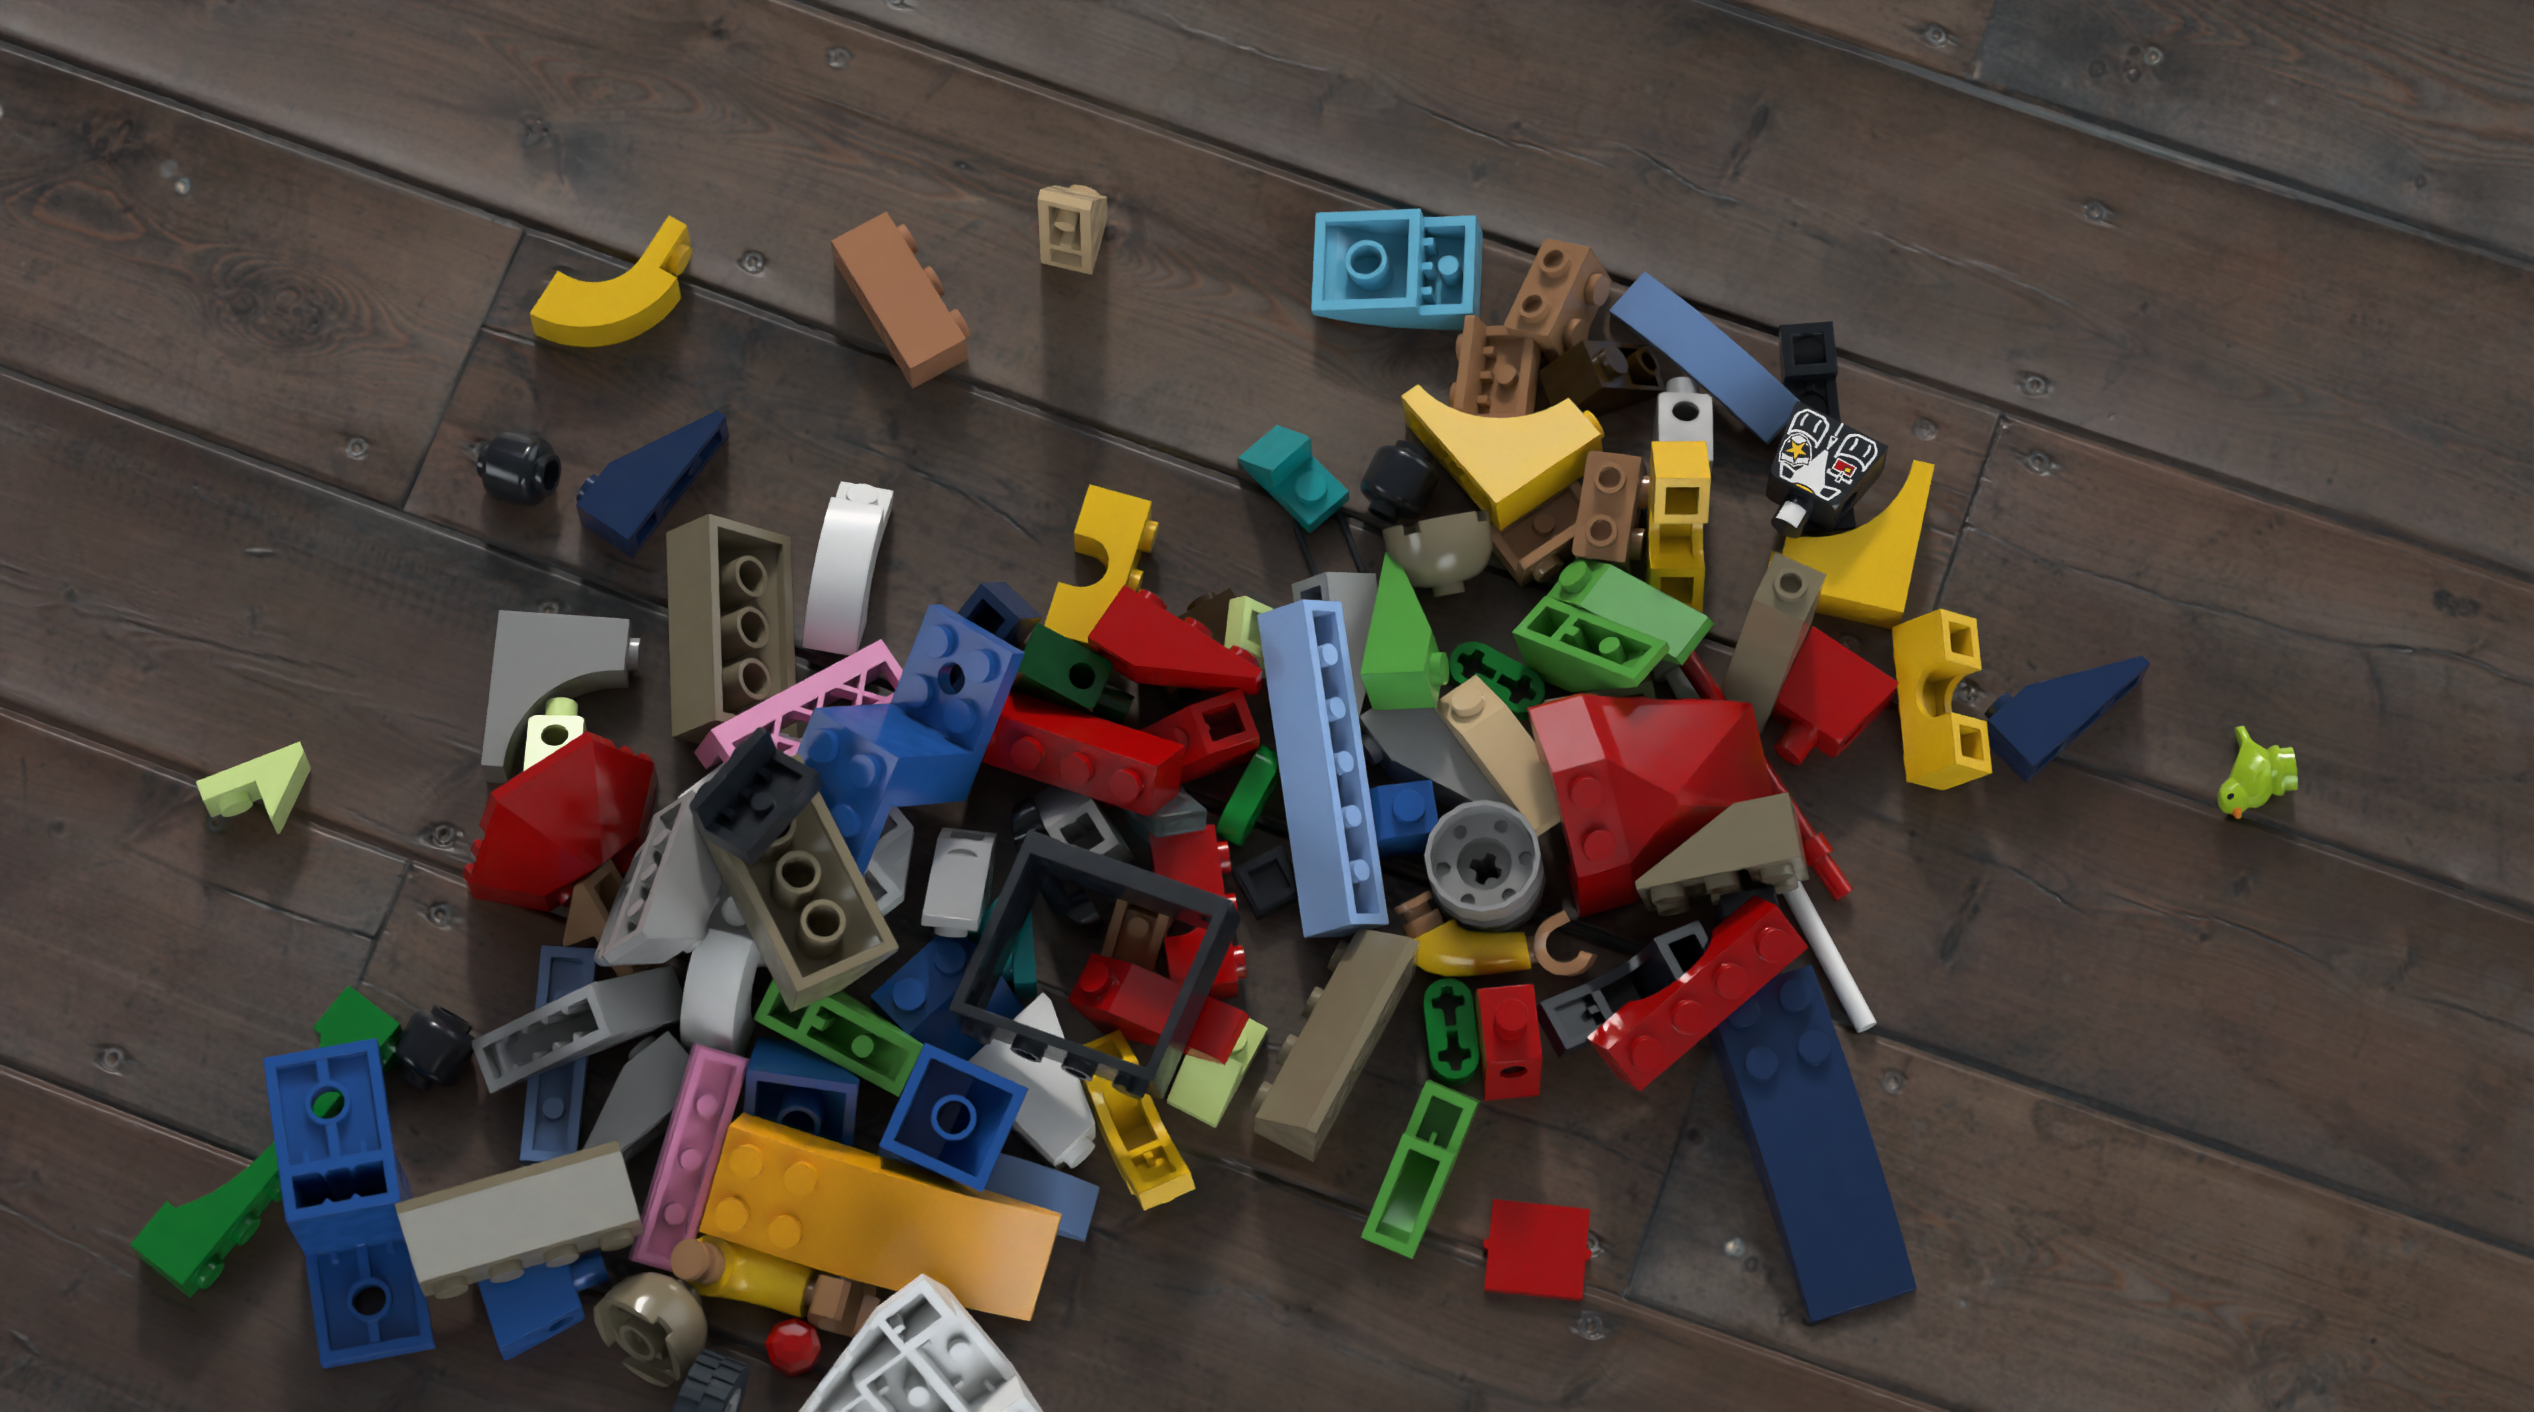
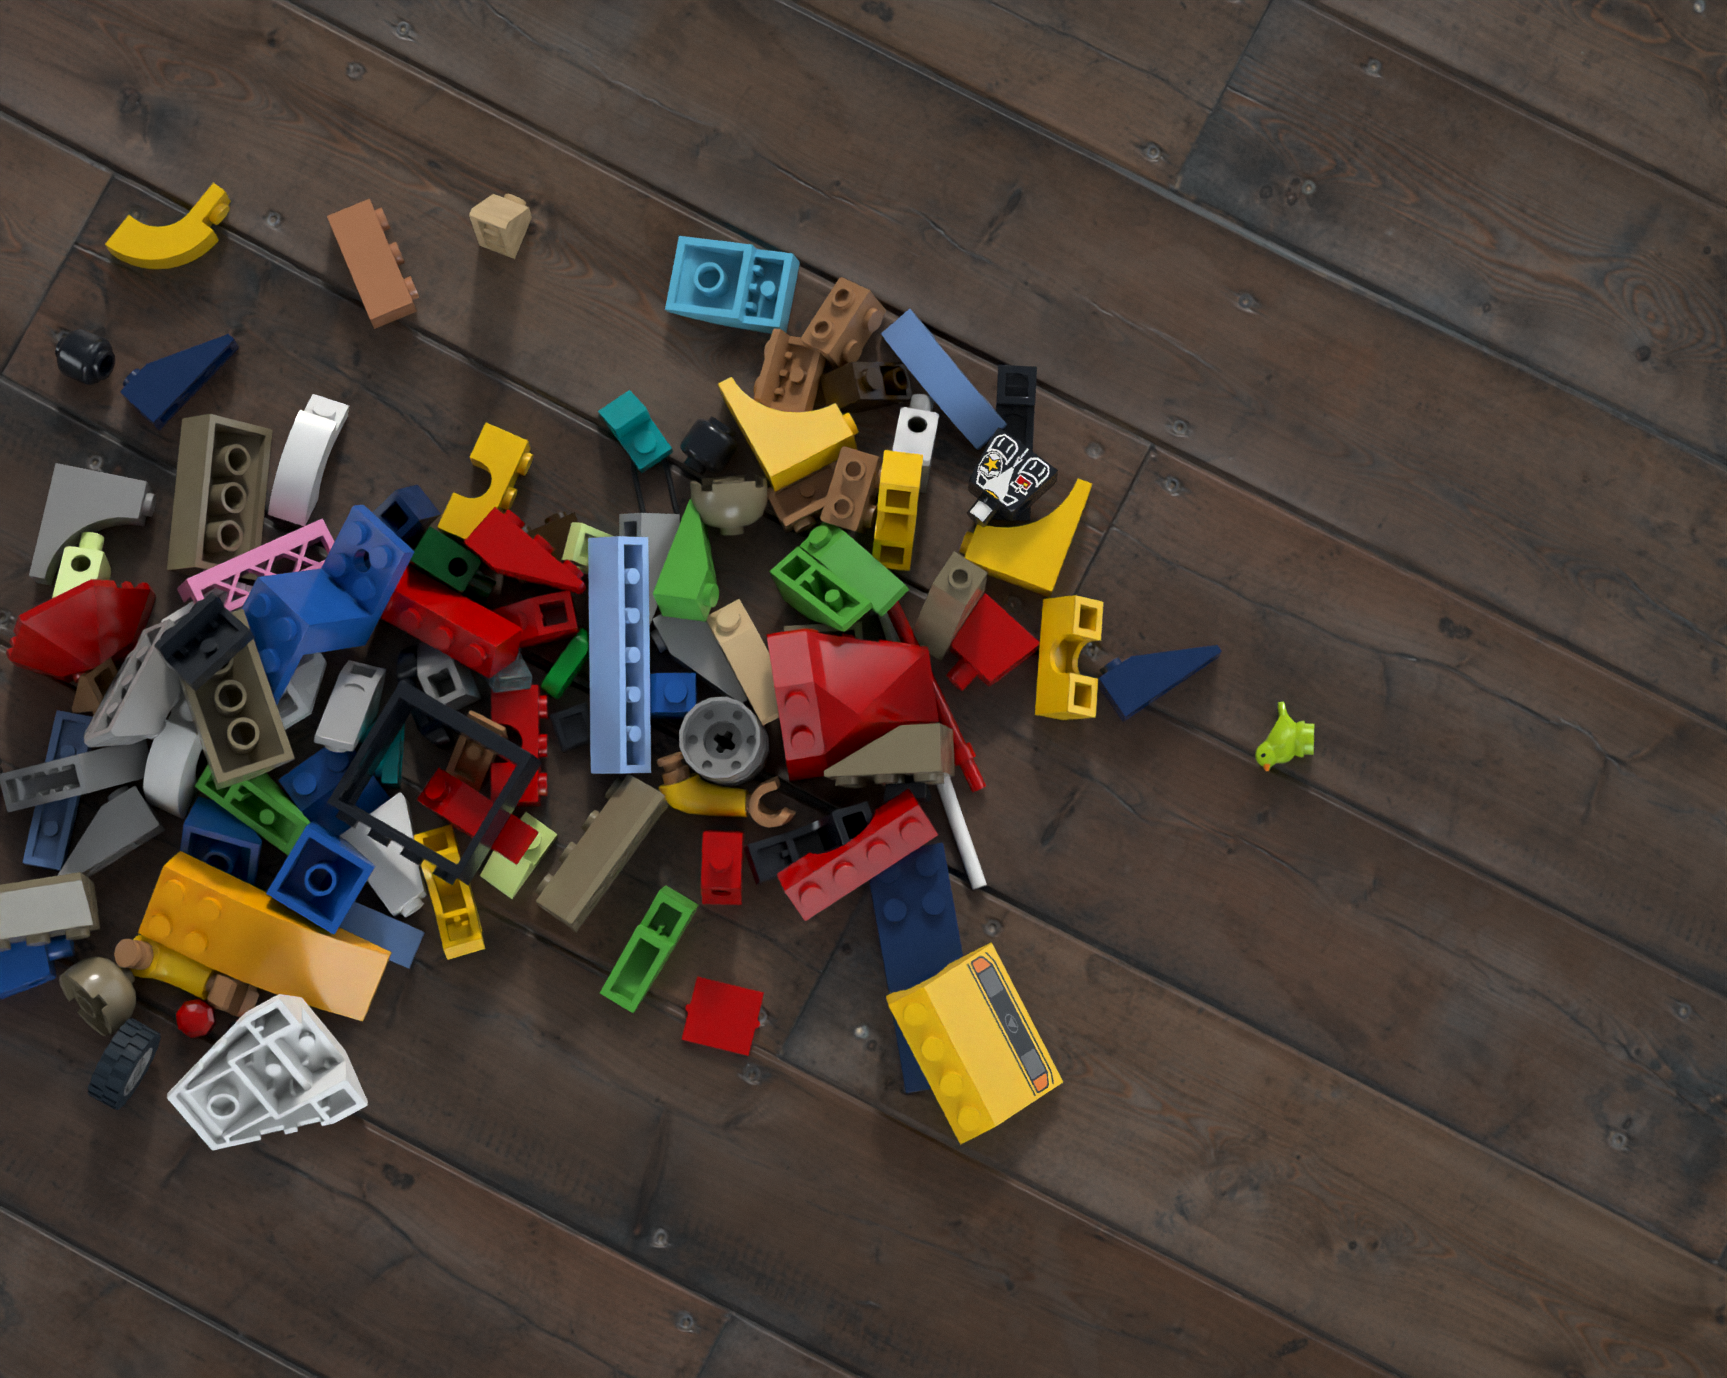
camera: 10 degrees right, 10 degrees up
(689, 1154) = (139, 875): bright pink tile -> none
(1463, 1030) = (675, 852): green beam -> none
(1502, 670) = (762, 593): green beam -> none
(1899, 1233) = (975, 1043): none -> yellow piece

